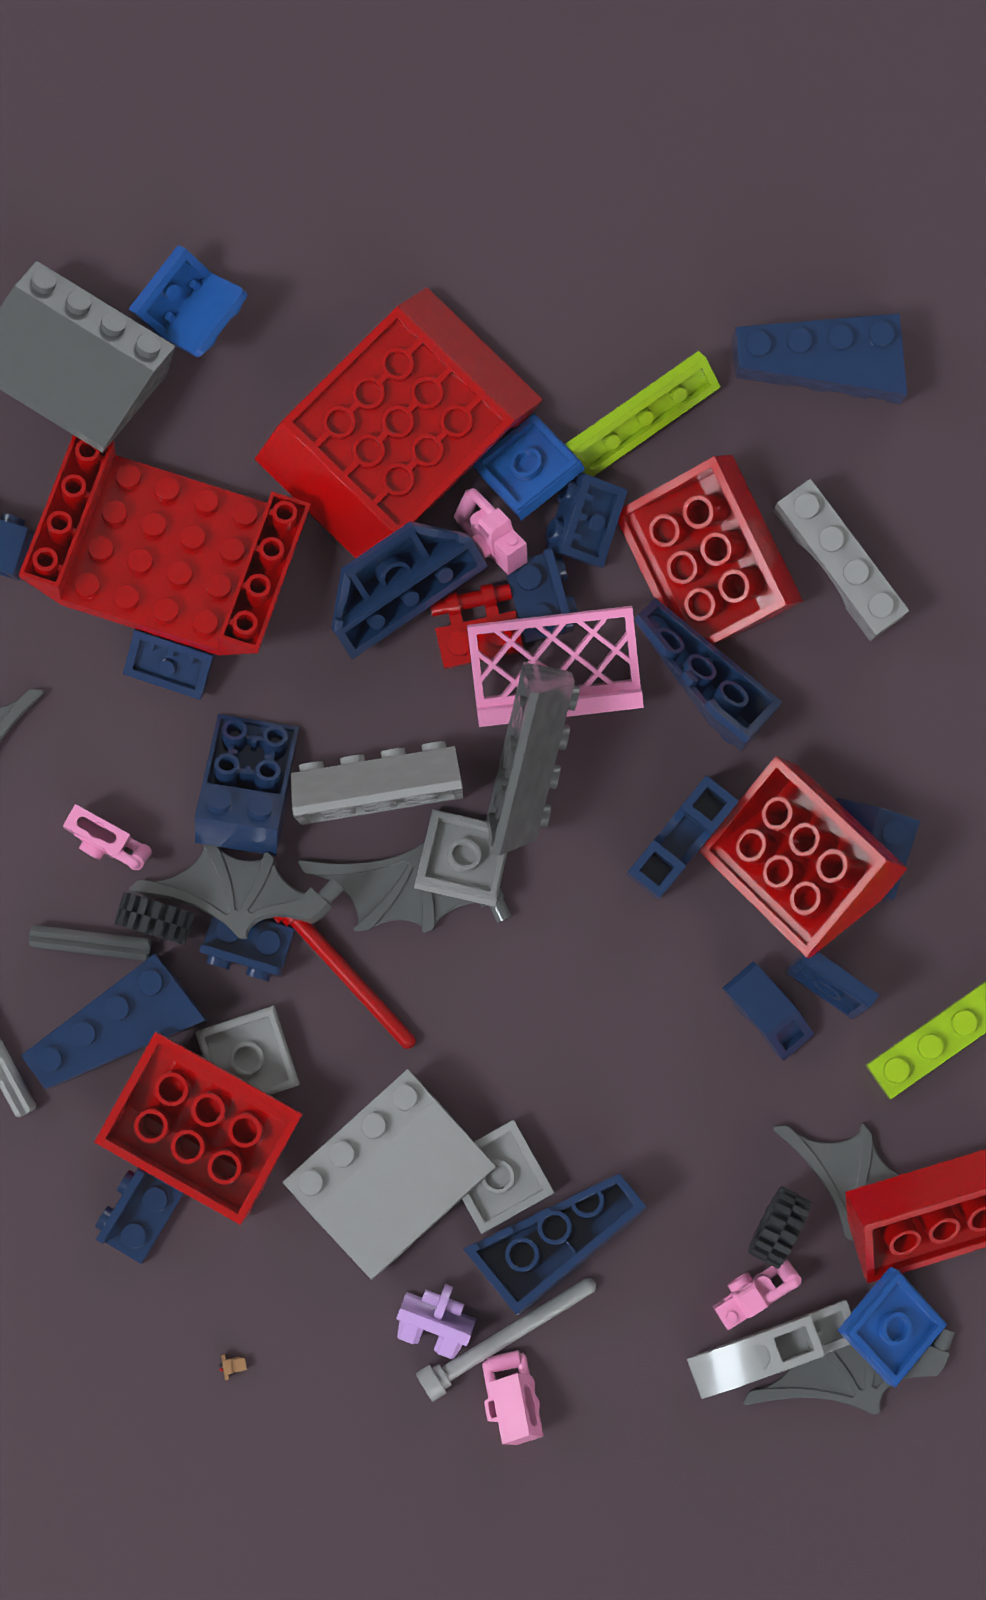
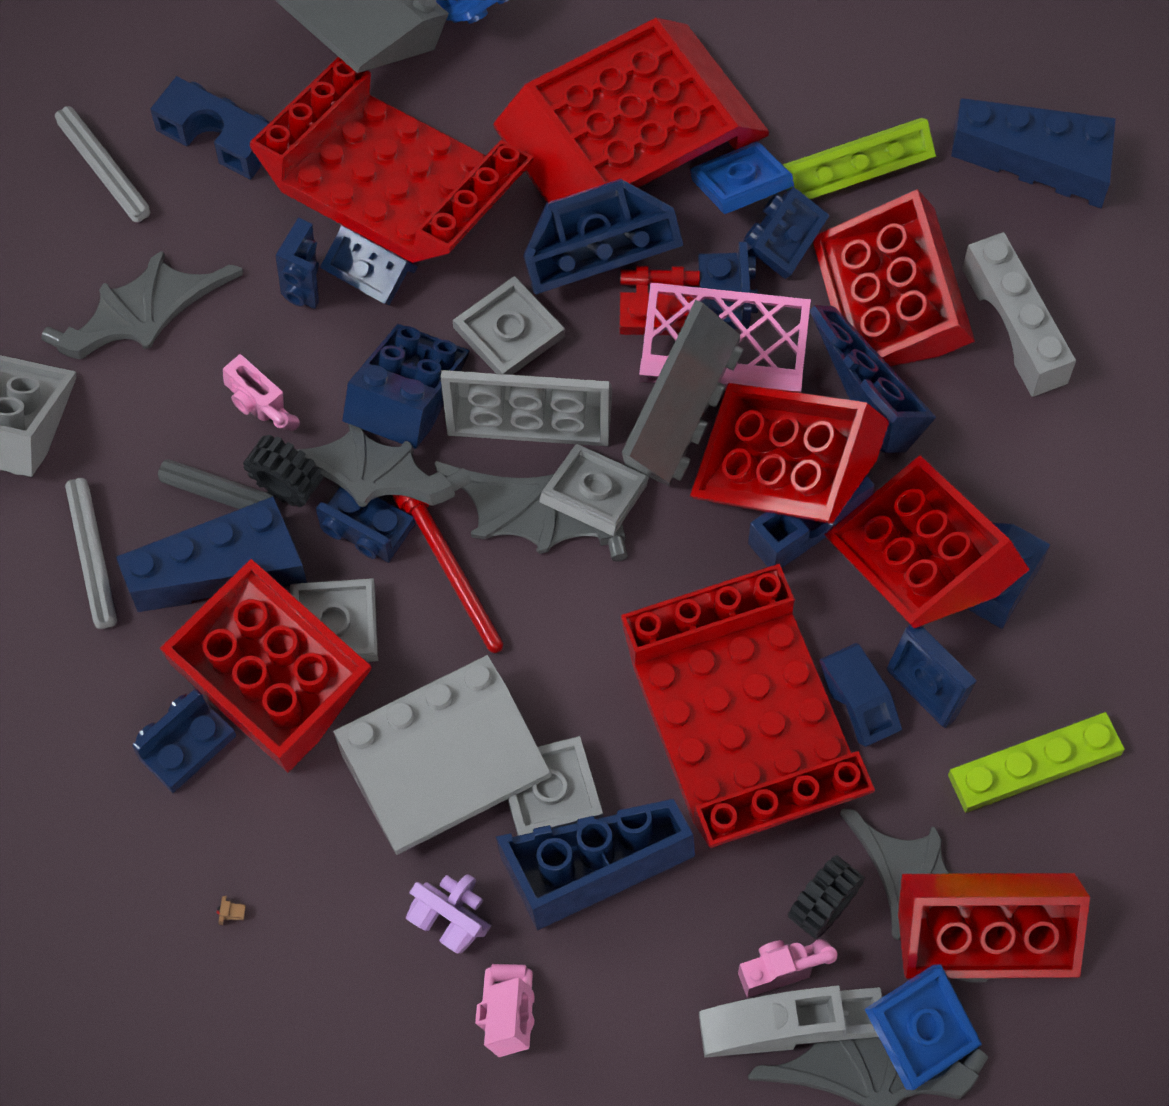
camera: 15 degrees right, 20 degrees down
(102, 681) = (299, 266): none -> dark blue bracket
(333, 696) = (509, 328): none -> light grey plate
(438, 1378) = (436, 971): light grey piece -> none
(491, 531) = (697, 221): bright pink piece -> none
(647, 791) = (788, 452): none -> red slope
(663, 1057) = (741, 707): none -> red slope

